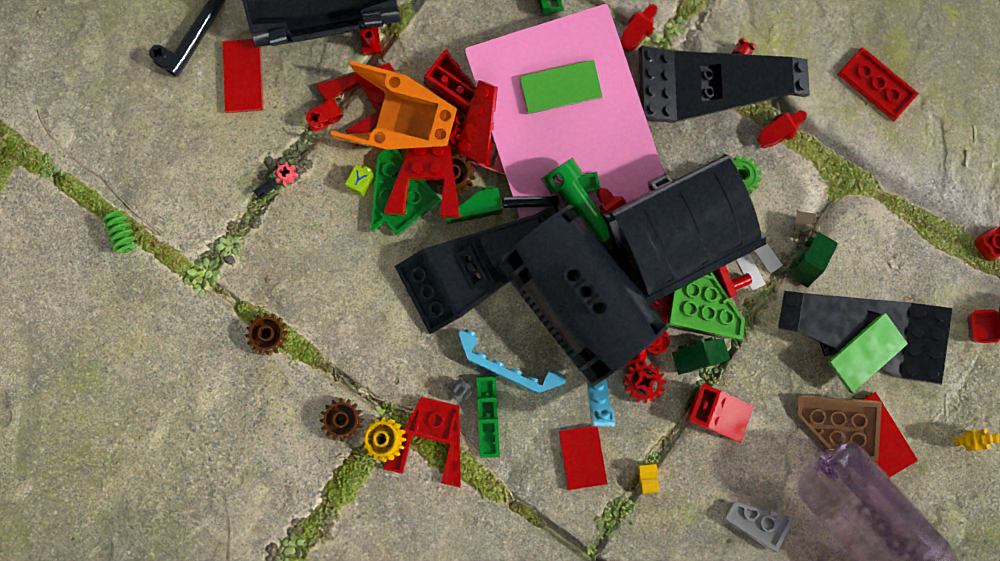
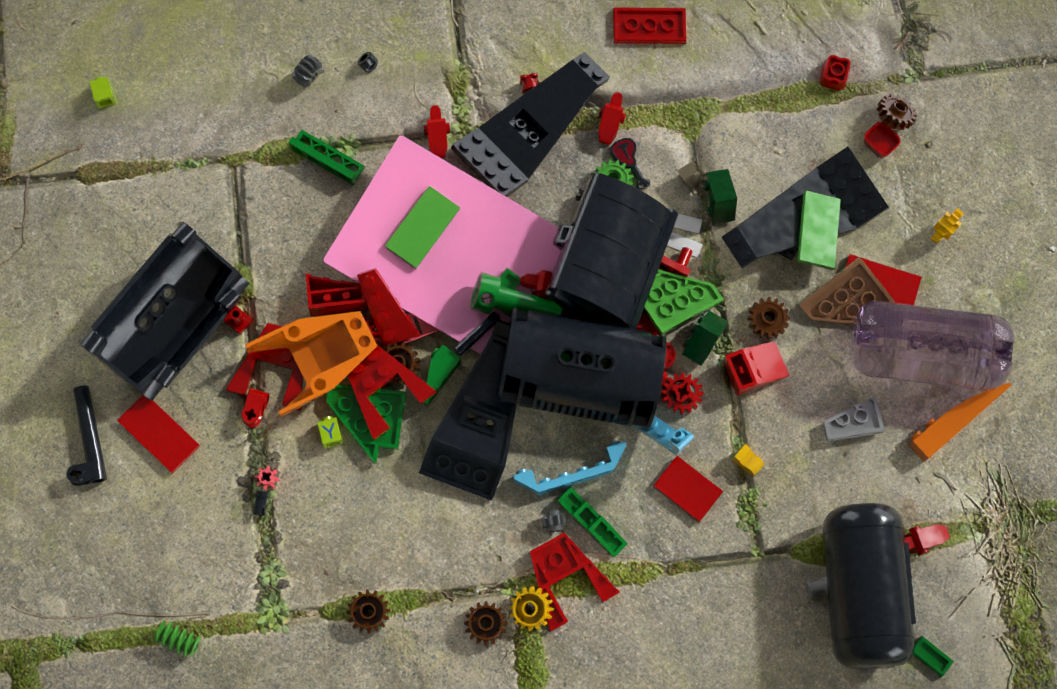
camera: 45 degrees left, 5 degrees down
(769, 163) = (624, 151): none -> black piece
(774, 381) = (773, 310): none -> reddish brown gear

